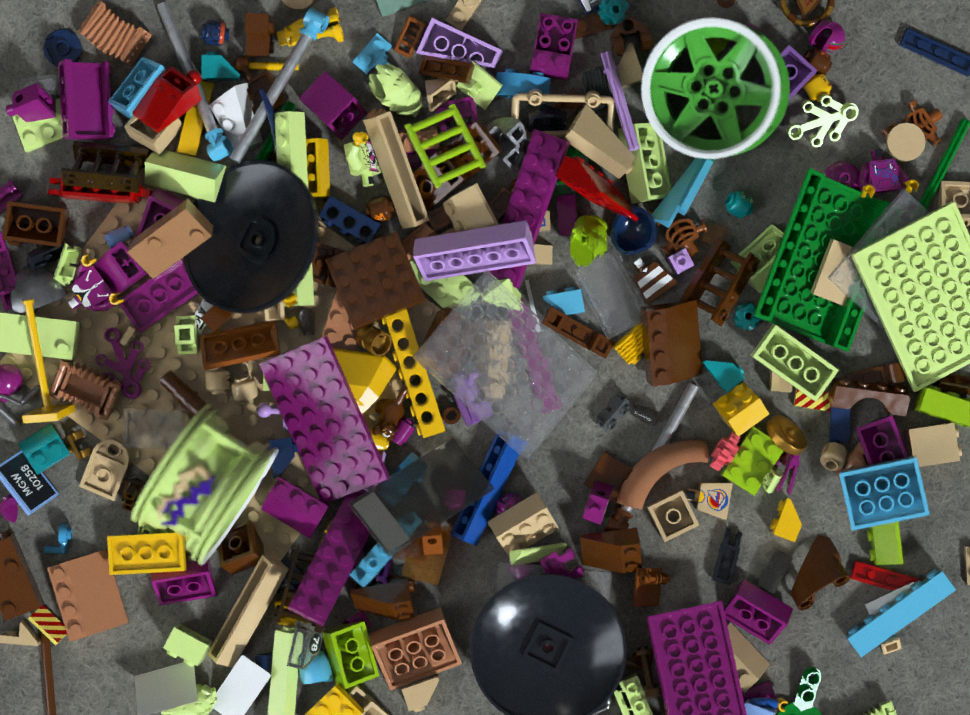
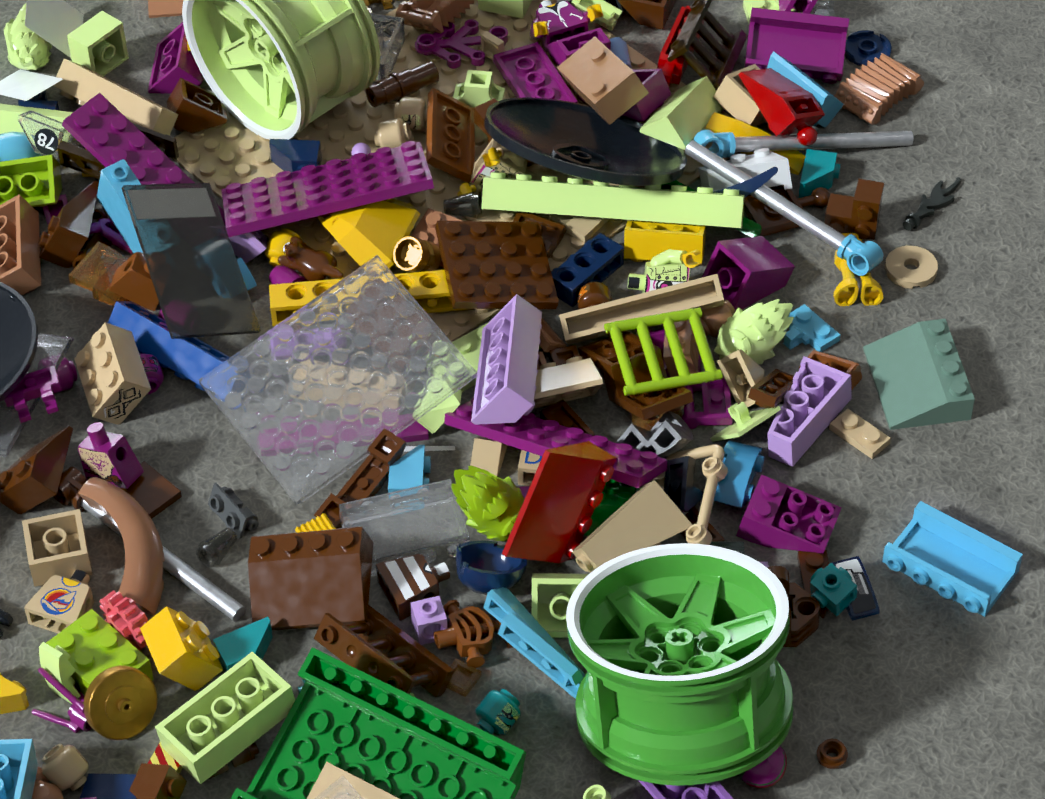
camera: 100 degrees right, 40 degrees down
(214, 32) = (864, 168): dark blue head -> none
(268, 65) = (810, 238): yellow piece -> none
(295, 507) = (234, 162): magenta slope -> none
(533, 554) = (69, 379): yellowish green slope -> none

